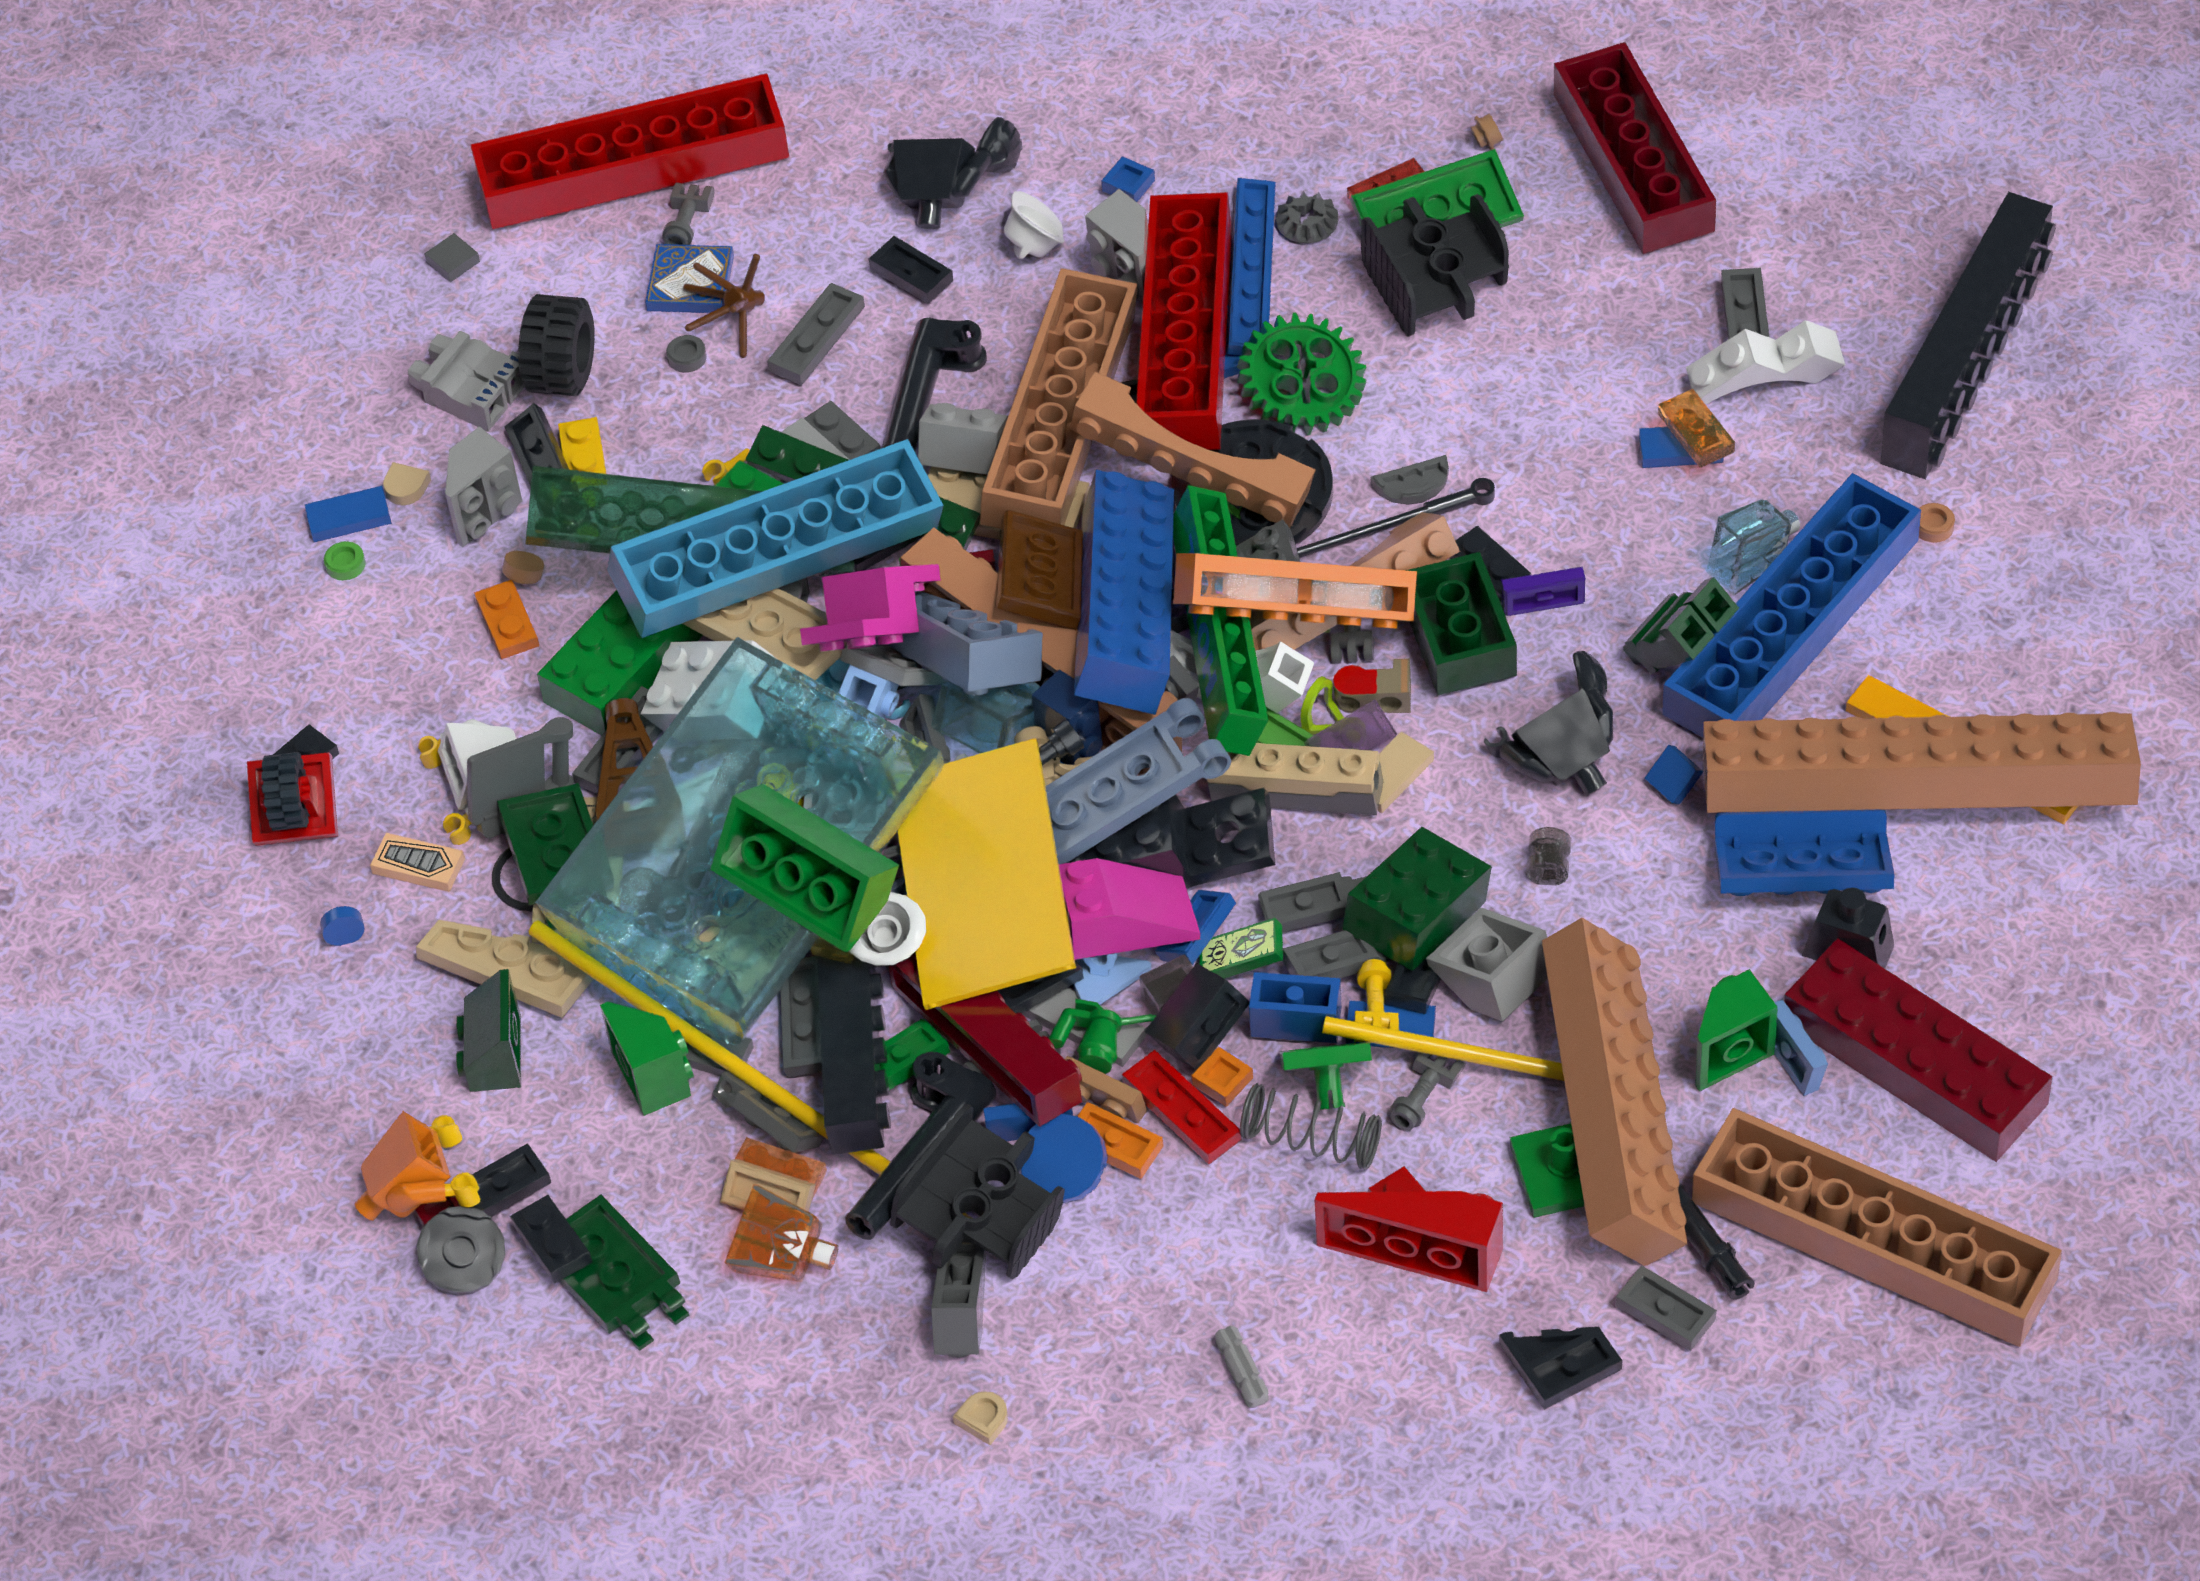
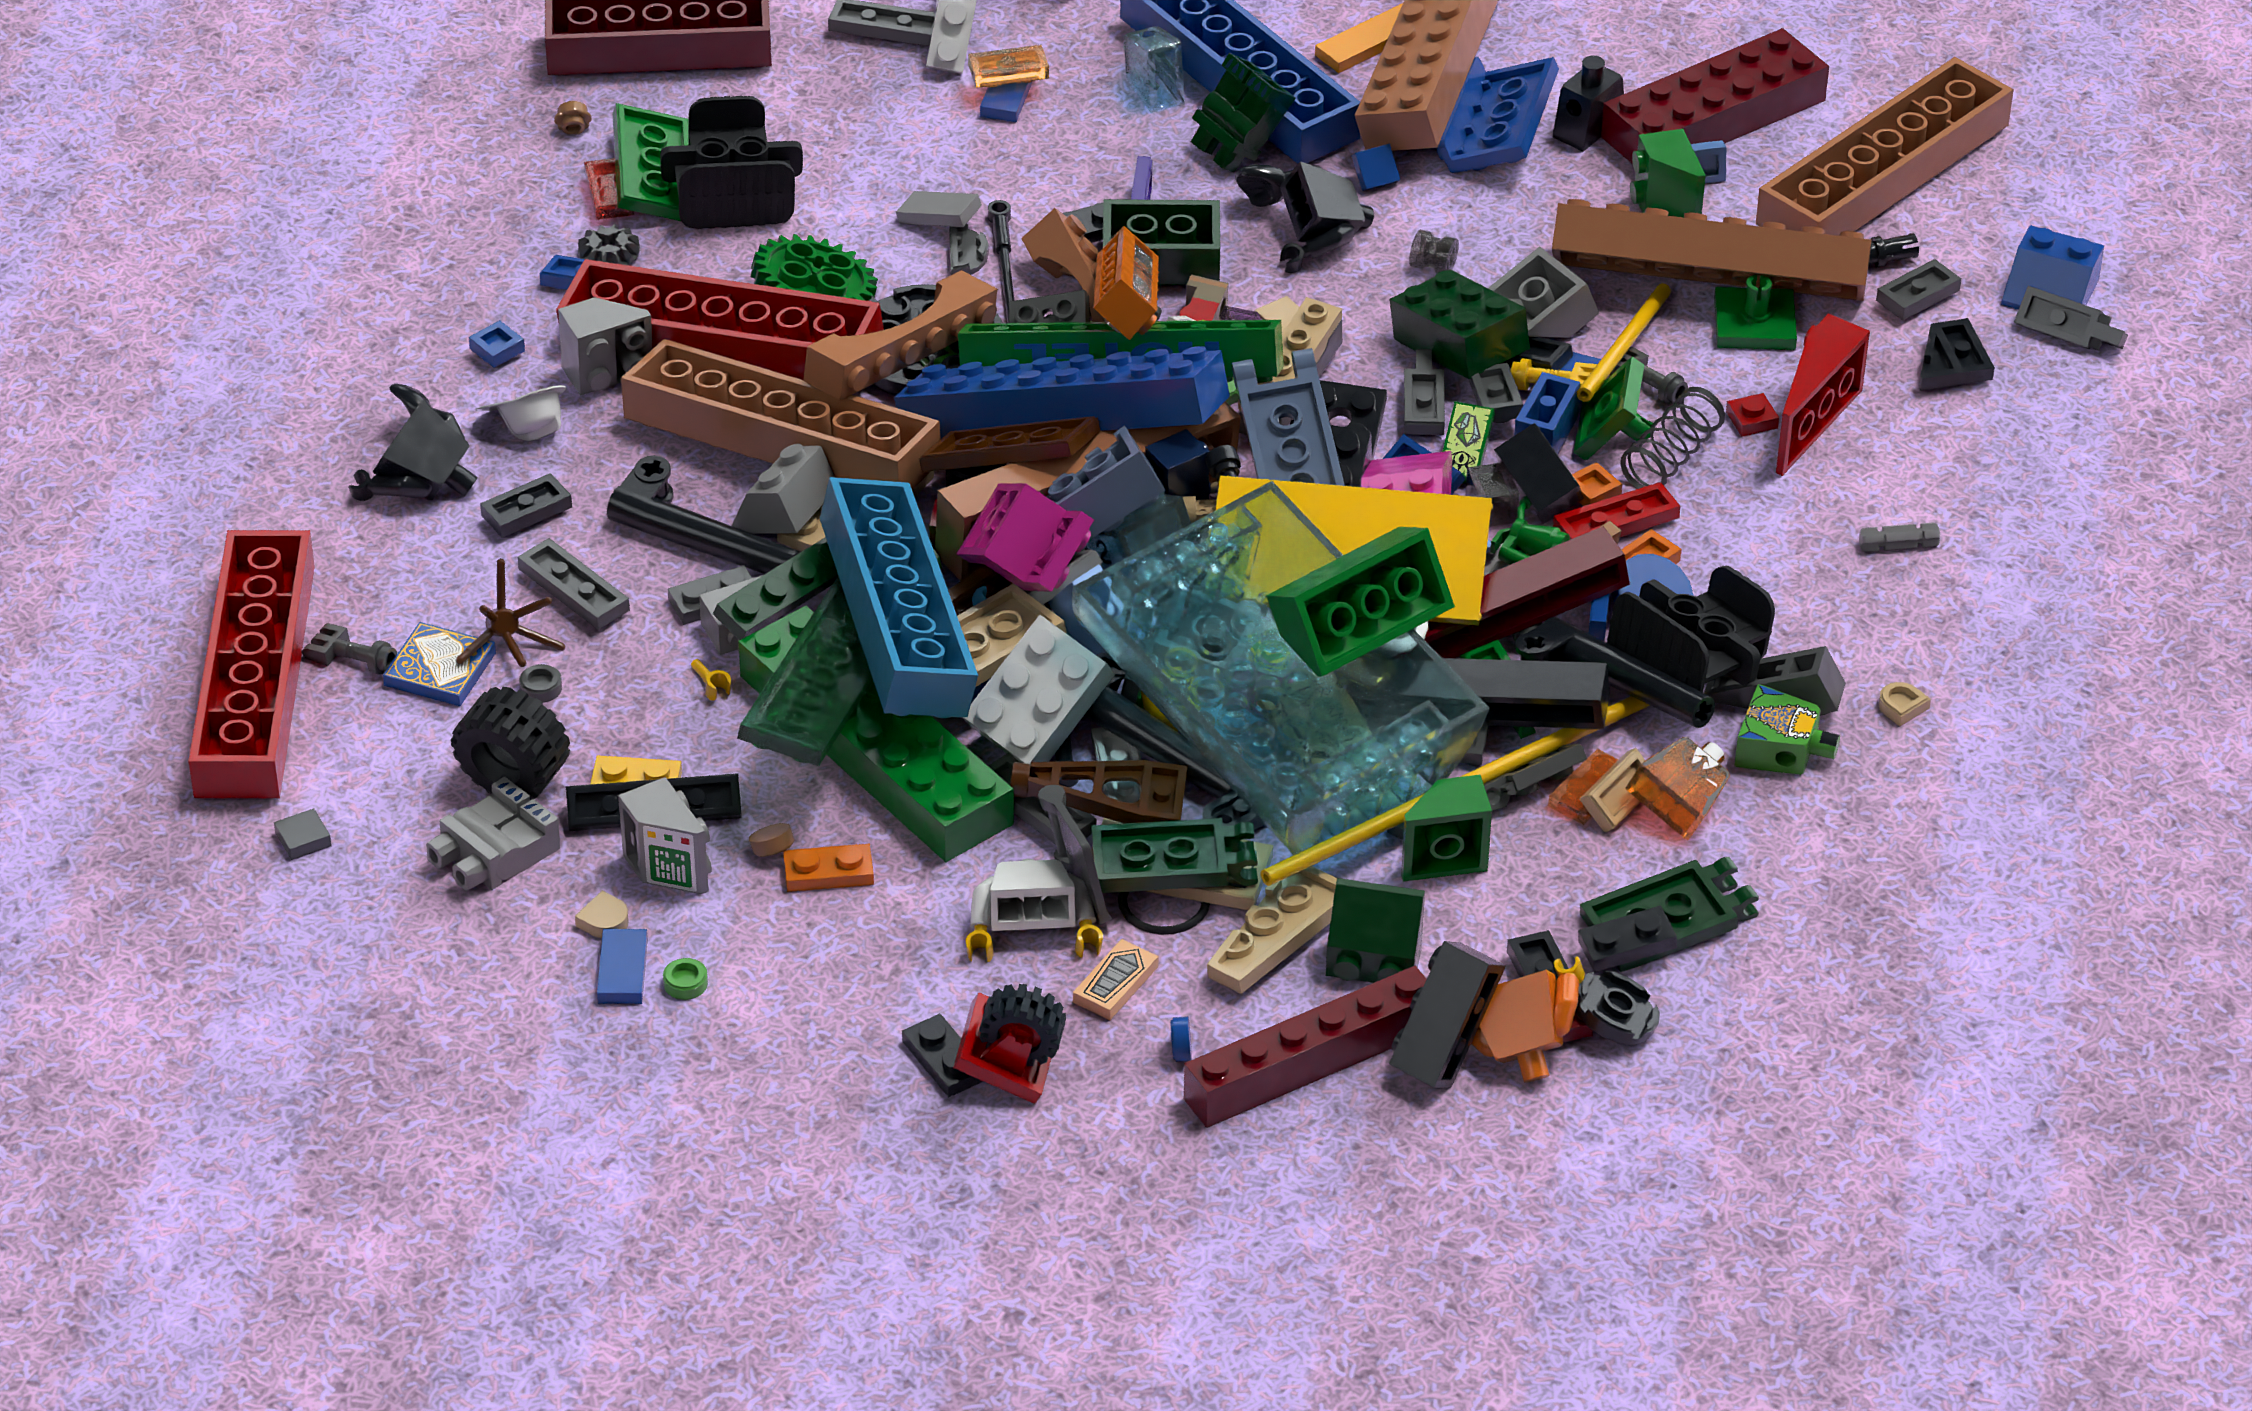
camera: 80 degrees left, 10 degrees down
(350, 1023) = (1300, 1049): none -> dark red brick
(376, 1103) = (1446, 1014): none -> black brick
(888, 1312) = (1782, 734): none -> bright green torso
(1455, 440) = (938, 208): none -> light grey tile
(1661, 1463) = (2067, 320): none -> dark grey hinge
(1733, 1432) = (2055, 265): none -> blue slope

